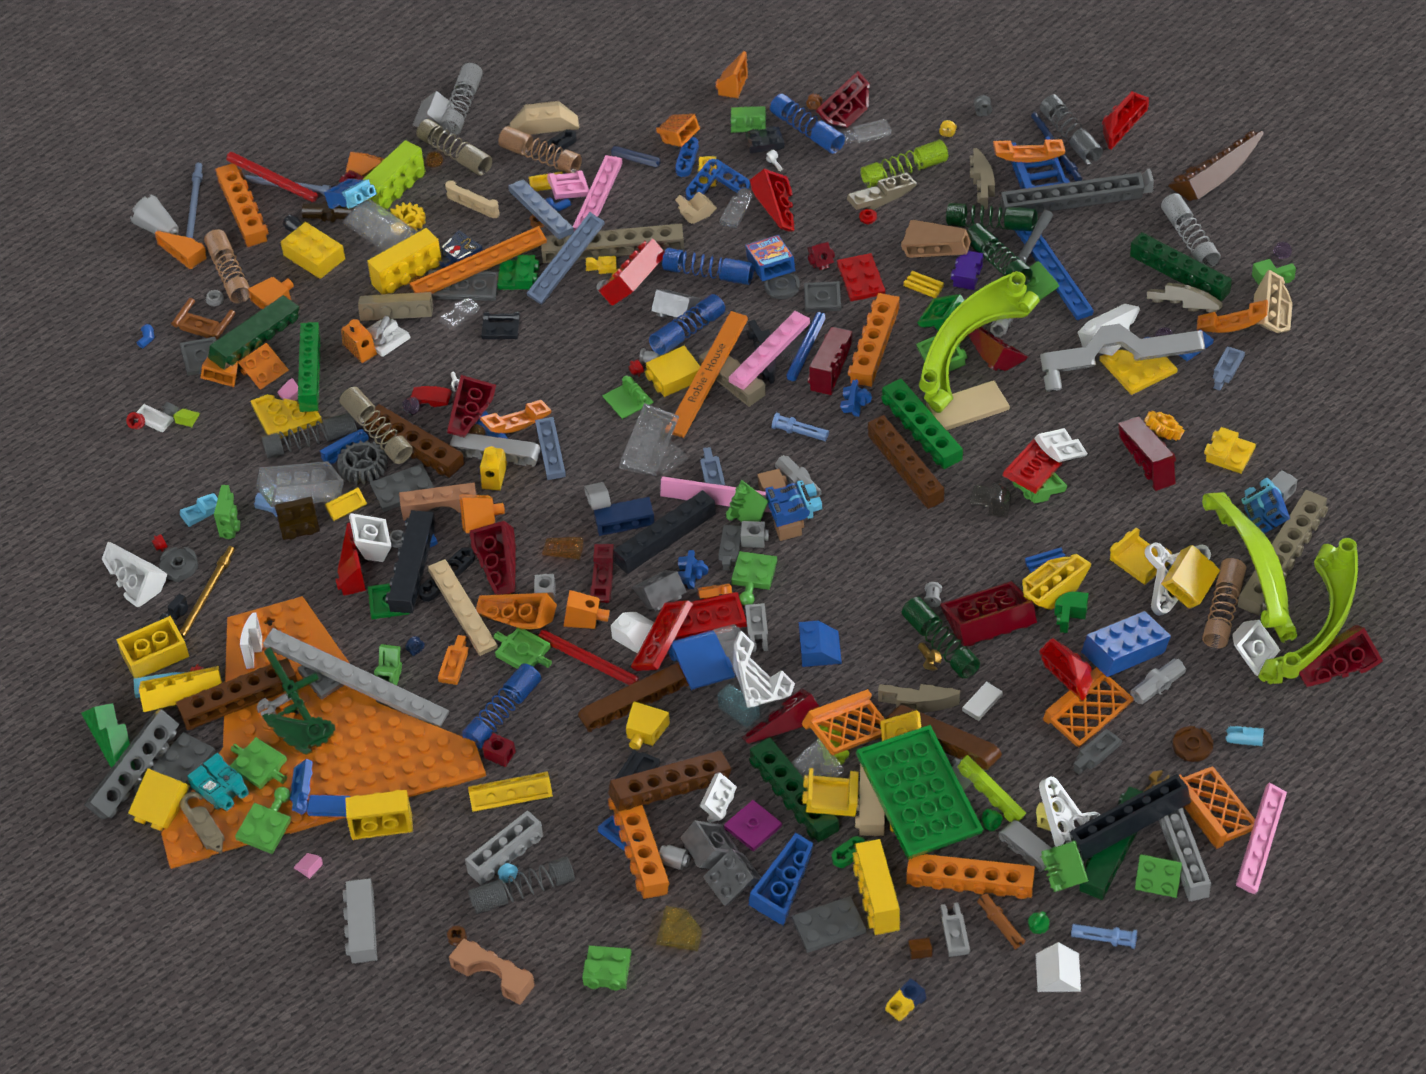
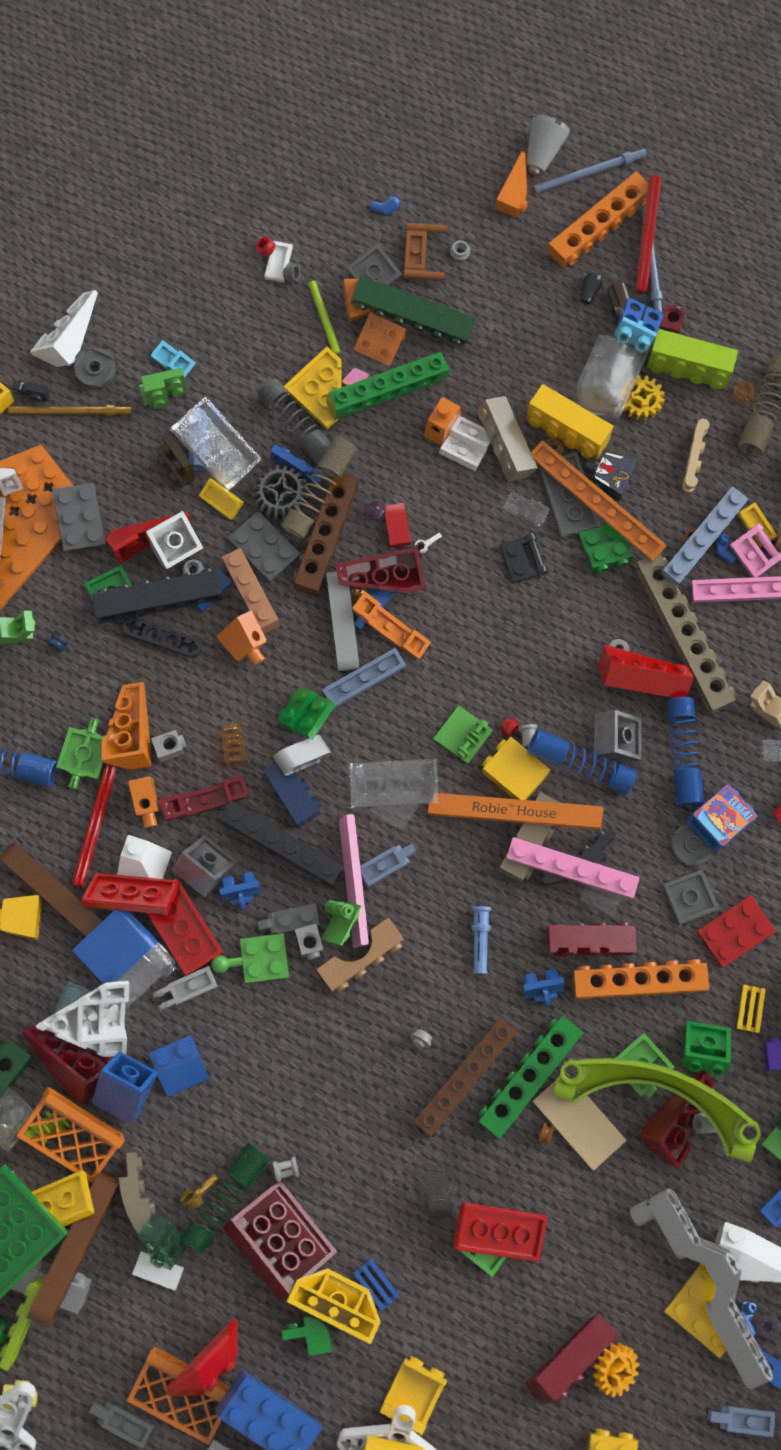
camera: 65 degrees right, 25 degrees up
(159, 542) = (114, 336): red plate -> none
(186, 417) = (290, 292): lime slope -> none
(218, 240) = (529, 223): medium nougat piece -> none
(219, 400) = (324, 317): none -> lime bar
(269, 291) = (482, 304): orange torso -> none
(310, 602) = (78, 517): none -> dark grey plate
(312, 250) = (558, 320): yellow brick -> none
(362, 163) = (708, 322): orange slope -> none
(377, 332) = (456, 437): light grey bar -> none
(454, 662) = (48, 690): orange hinge -> none
(462, 607) = (119, 670): tan plate -> none
(493, 461) = (311, 630): yellow torso -> none
(496, 555) = (201, 678): dark red wedge -> none
(562, 487) = (305, 713): none -> green plate
(565, 258) = (635, 592): sand blue plate -> none
(604, 264) = (653, 636): yellow plate -> none
(712, 591) = (218, 922): orange plate -> none
(792, 502) = (351, 980): hips -> none
(794, 473) = (405, 962): light grey piece -> none
(805, 346) = (610, 905): blue axle -> none
(818, 250) = (746, 875): dark red brick -> none
(825, 675) = (124, 1087): none -> blue slope
(863, 483) = (421, 1039): none -> light grey plate
(960, 678) = (162, 1242): none -> clear green brick
(970, 426) = (545, 1134): none -> dark orange bush
(1060, 445) = (547, 1252): white slope -> none

